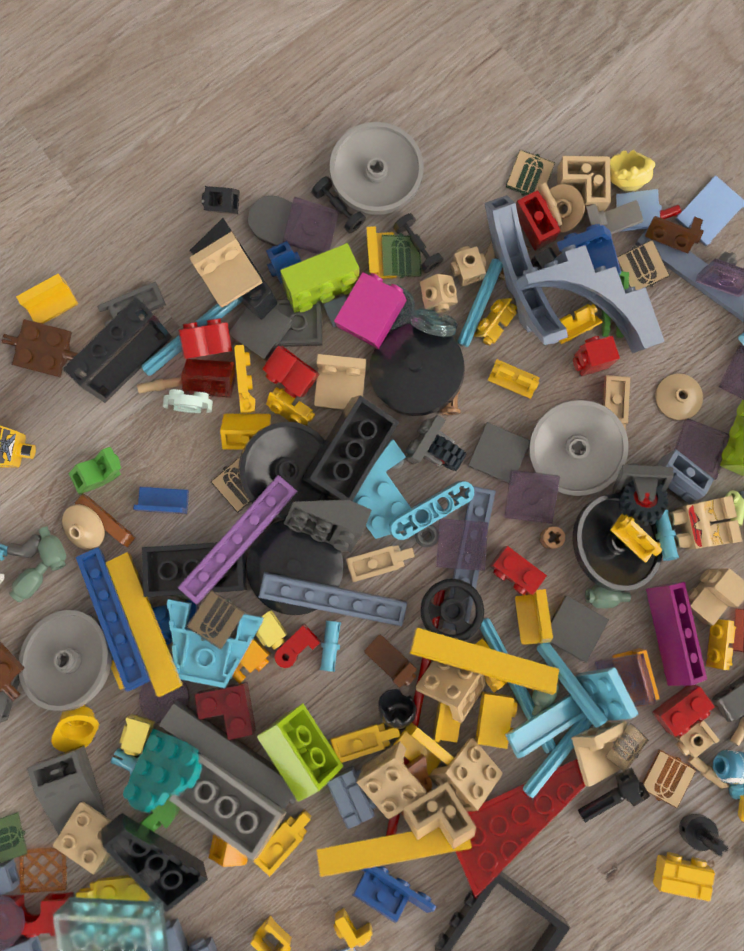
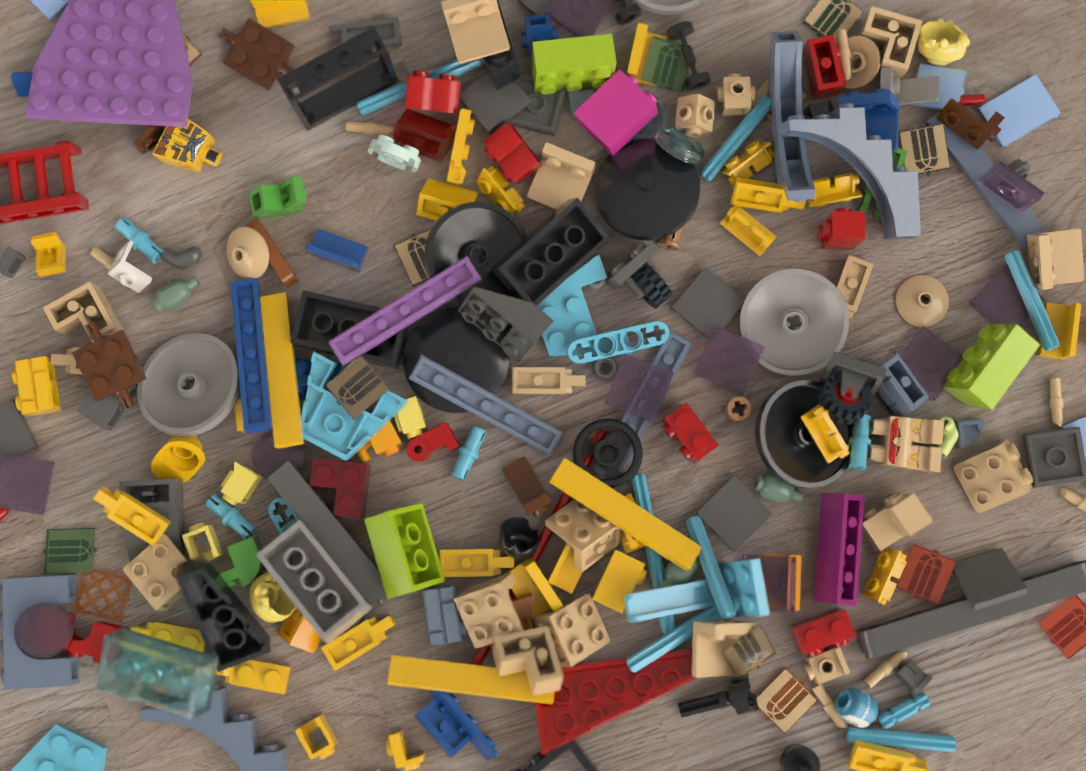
camera: 25 degrees right, 0 degrees up
(46, 796) = (132, 514): none -> yellow hinge
(51, 550) = (207, 267): sand green plant -> none
(113, 798) = (202, 541): none -> light yellow window
(161, 771) = (255, 525): teal plate -> none
(192, 834) = (269, 599): none -> light yellow hair
(205, 900) = (258, 675): none -> yellow hinge
(516, 346) = (762, 196): none -> yellow hinge
(534, 618) = (691, 488): yellow panel -> none

